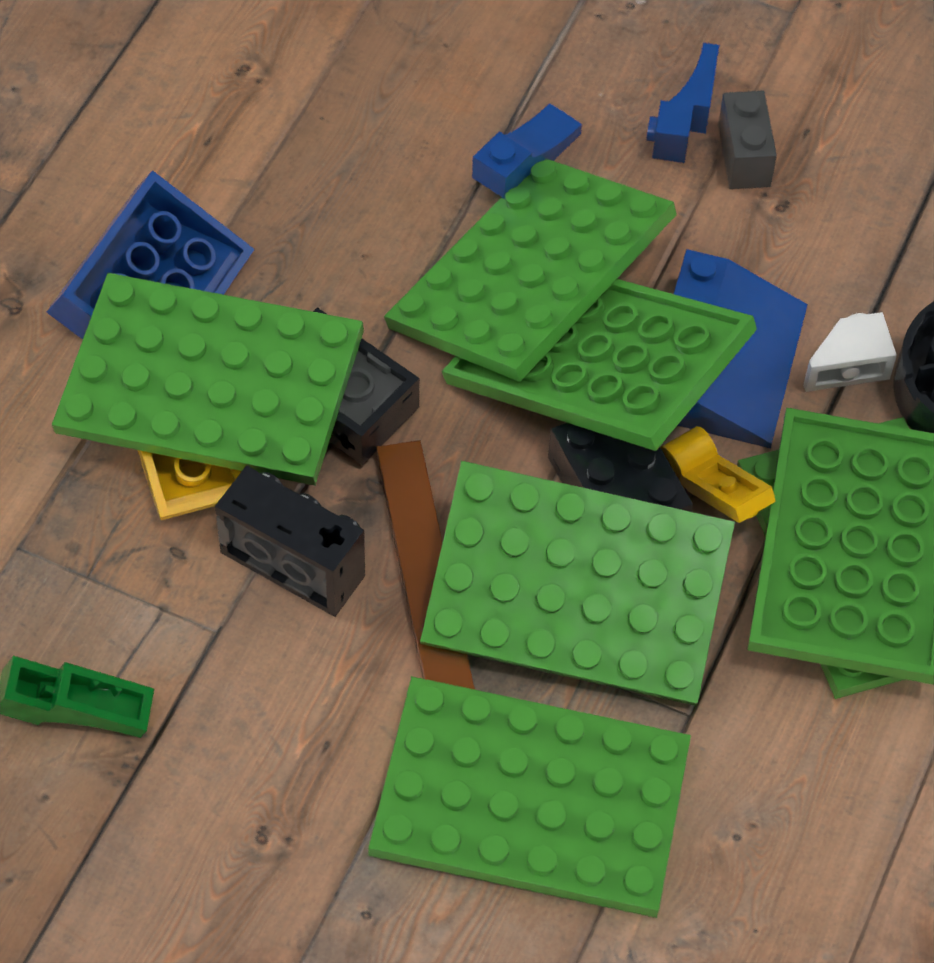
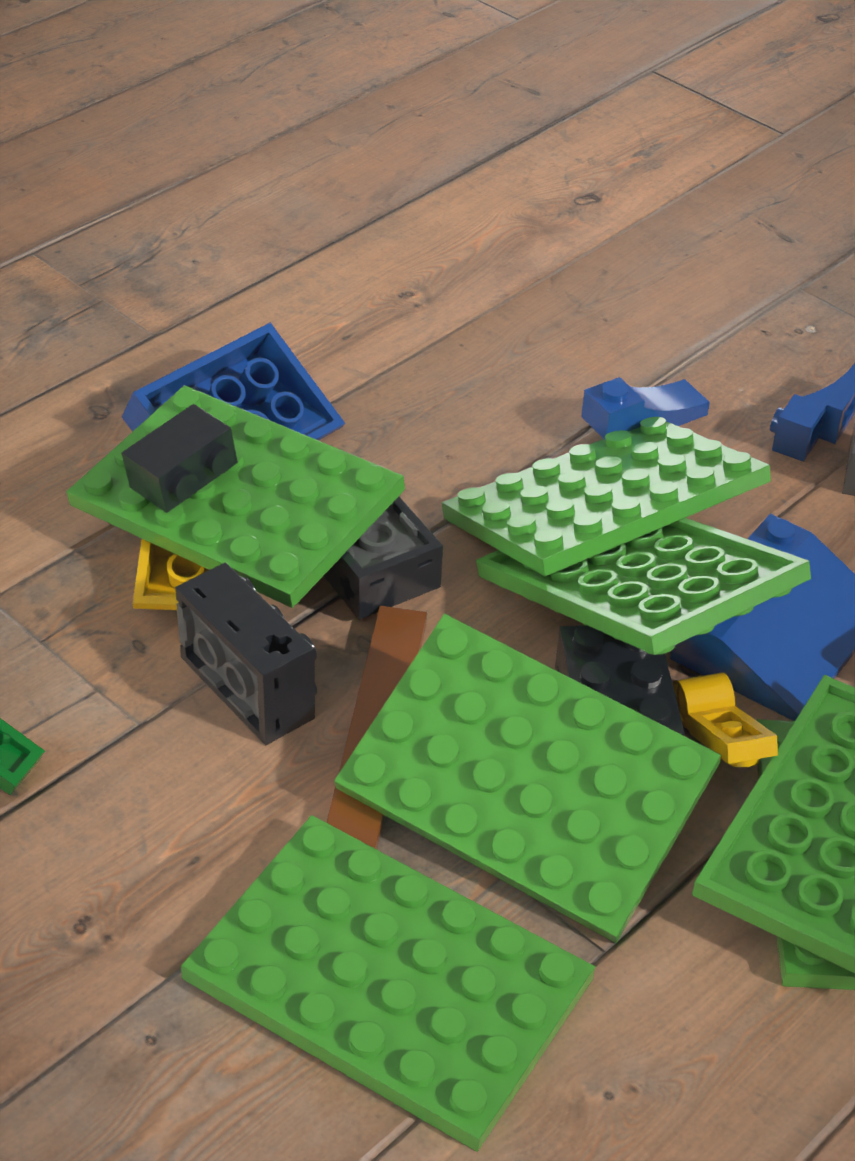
camera: 20 degrees right, 15 degrees down
(156, 367) = (179, 457): none -> black brick

